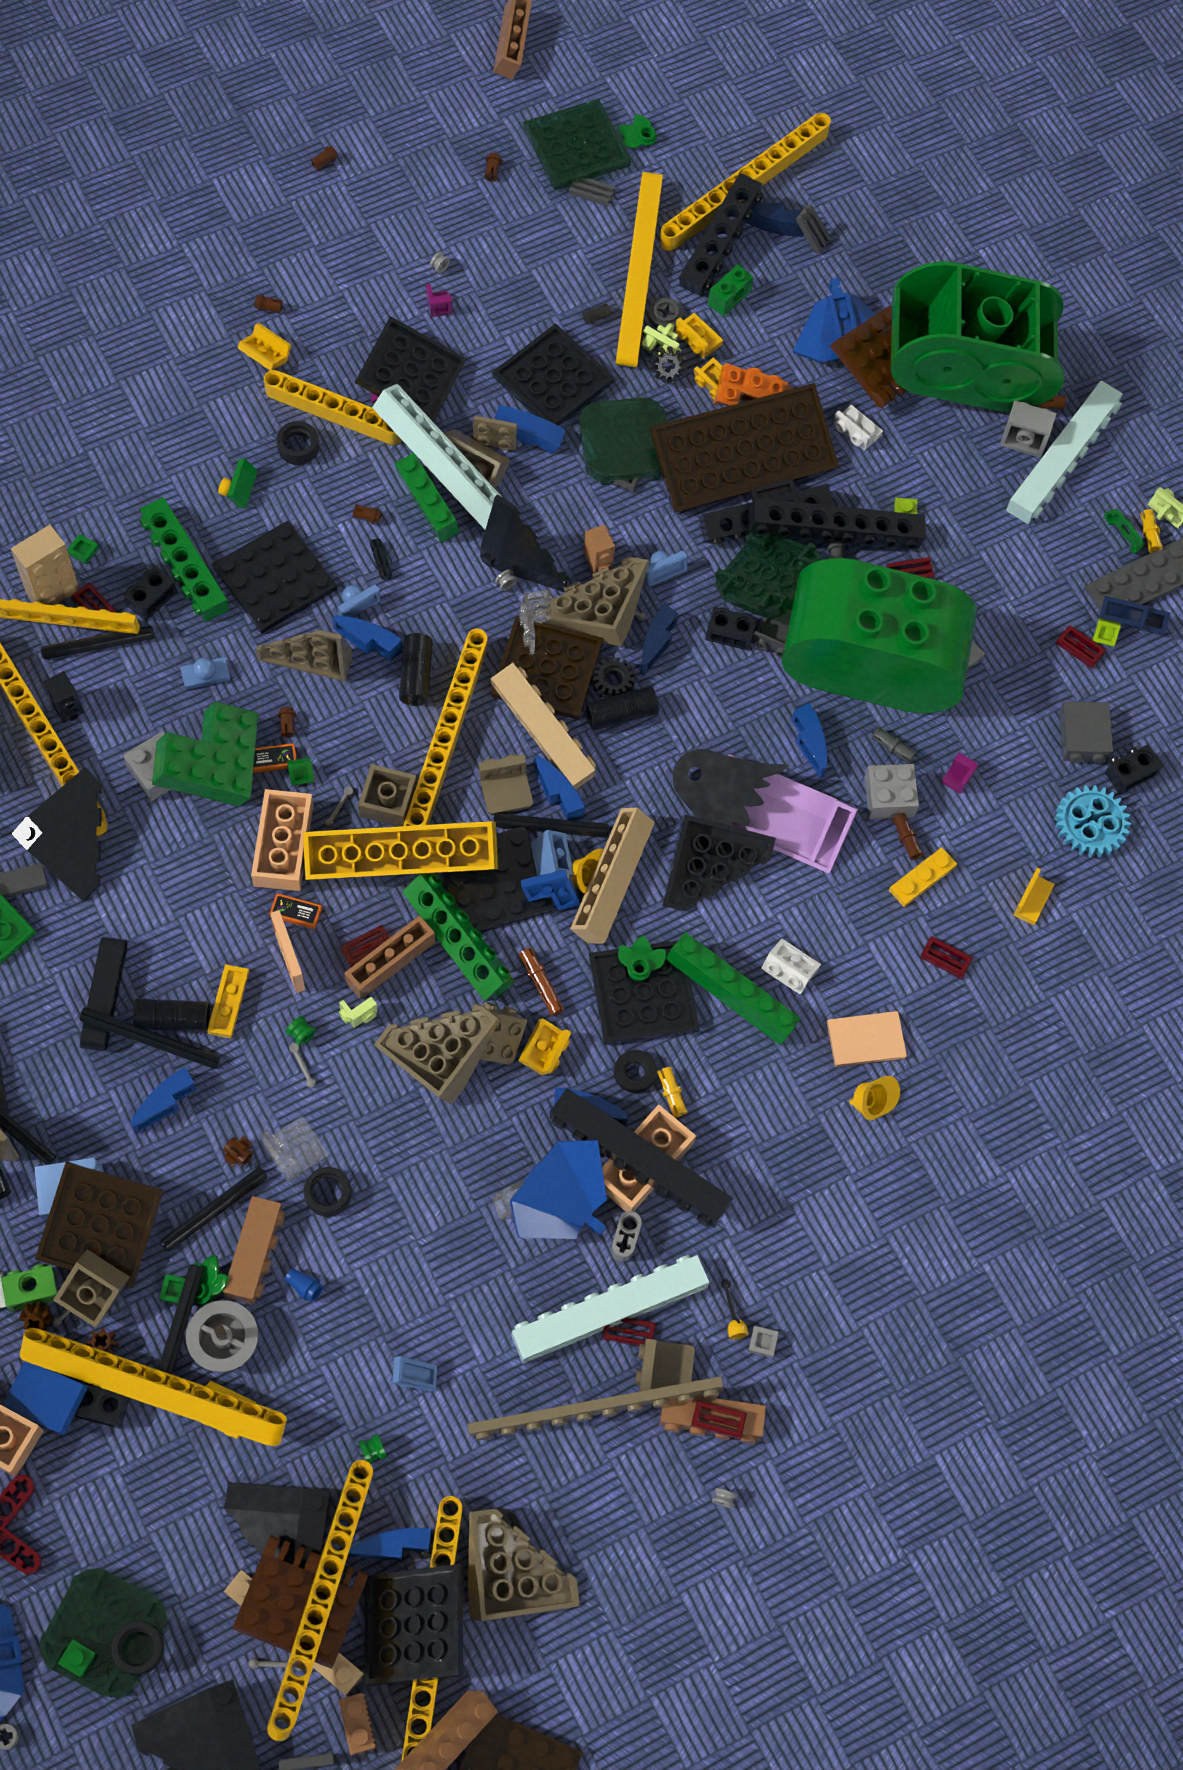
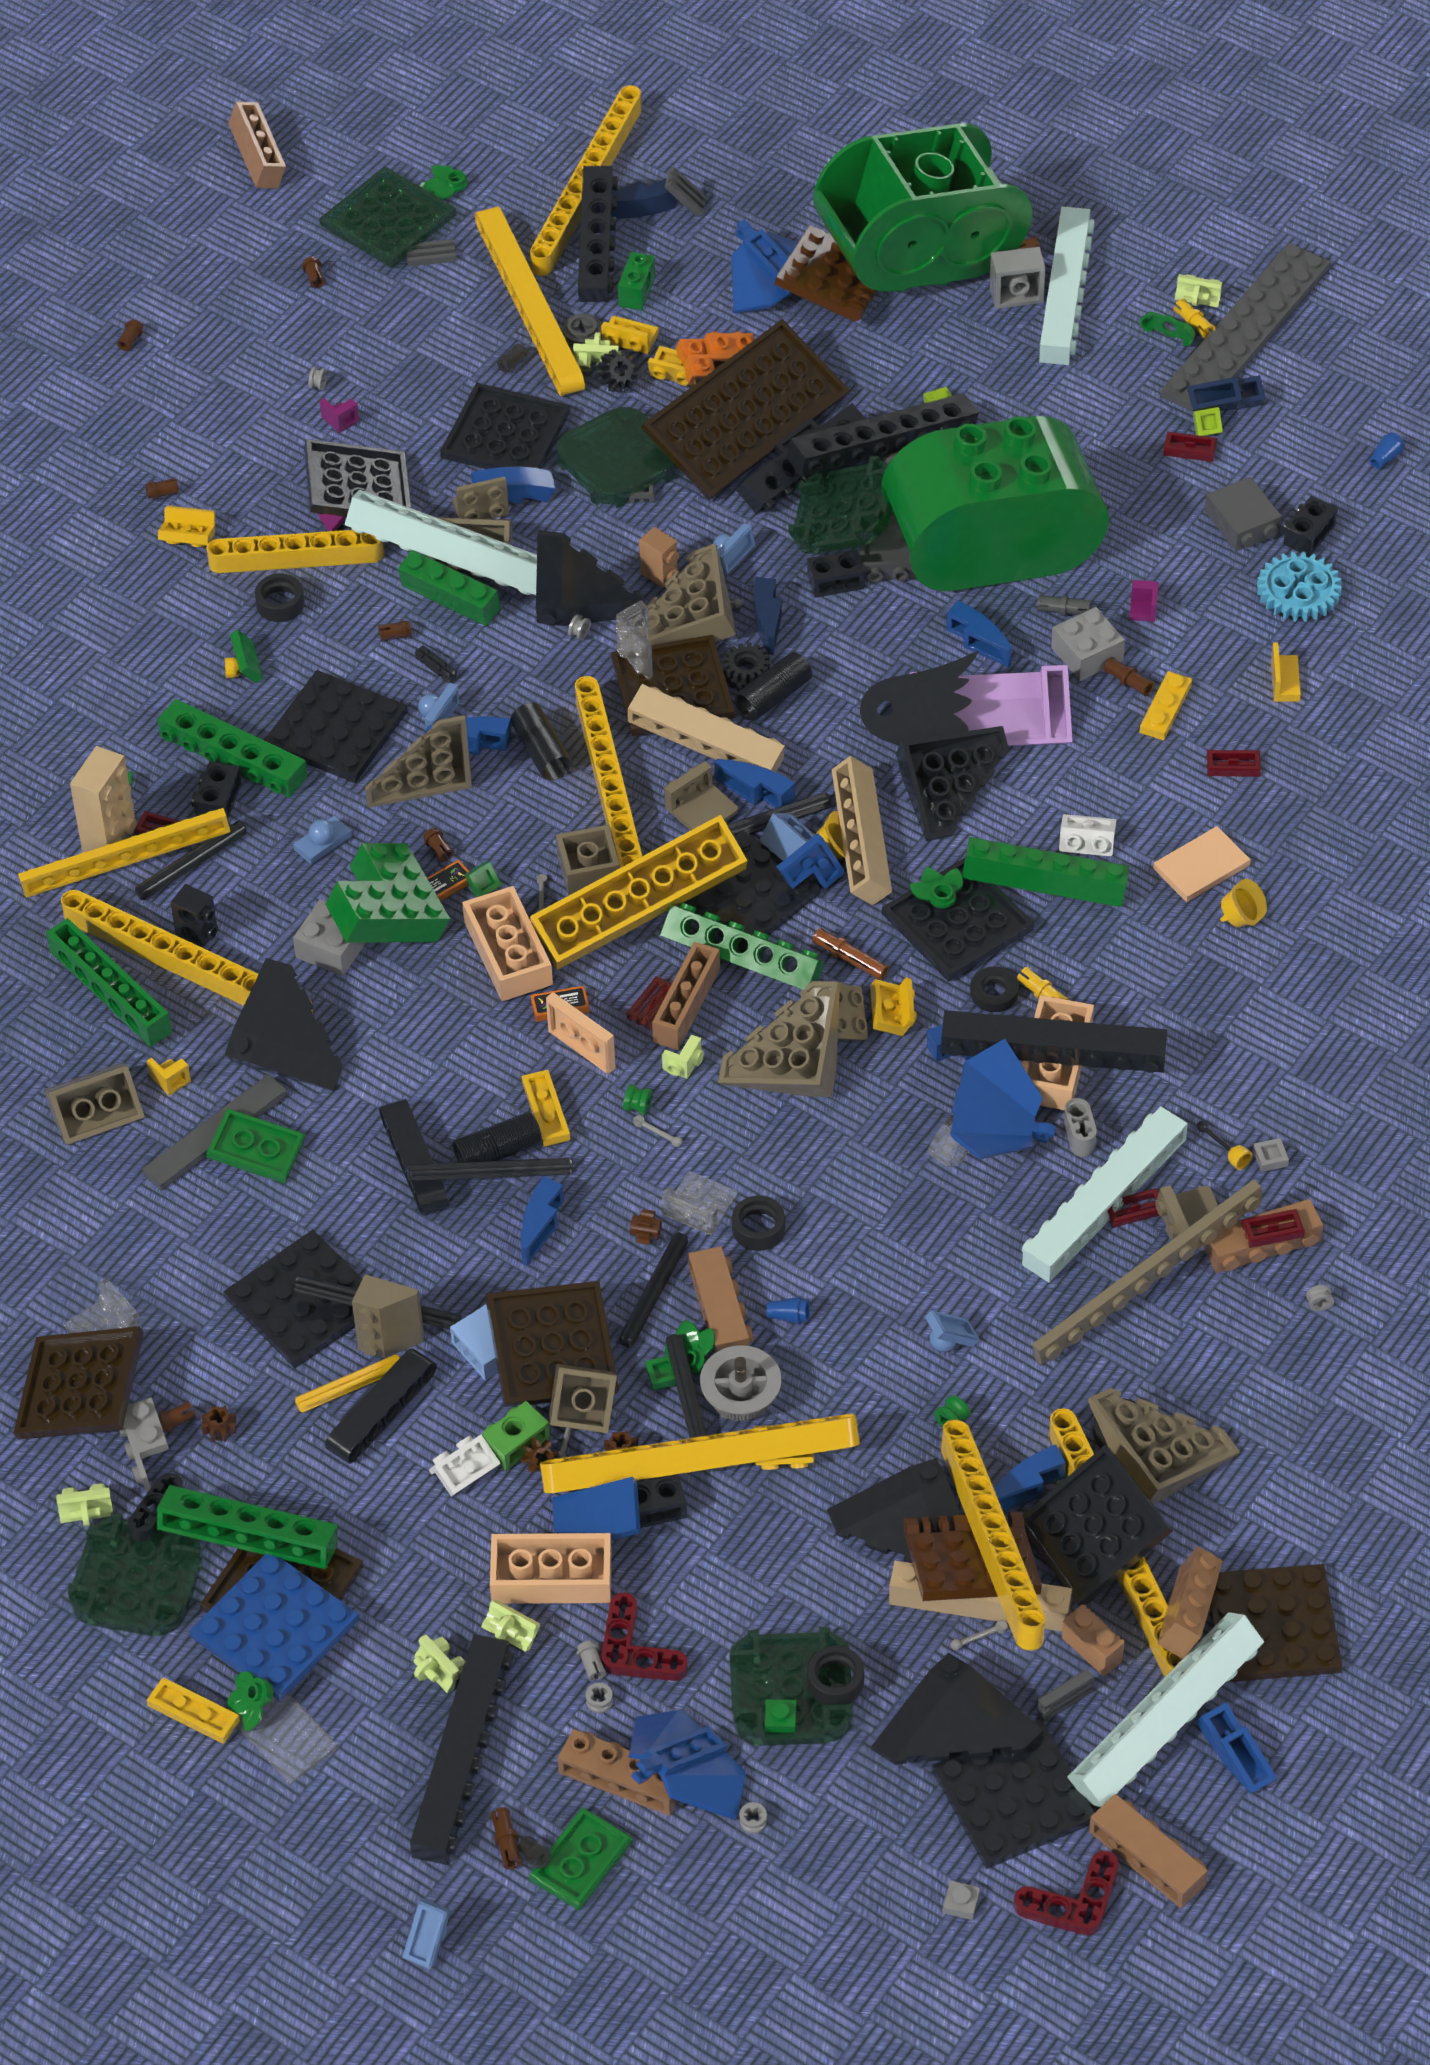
camera: 20 degrees left, 15 degrees down
(857, 427) = (843, 350): white bracket -> none

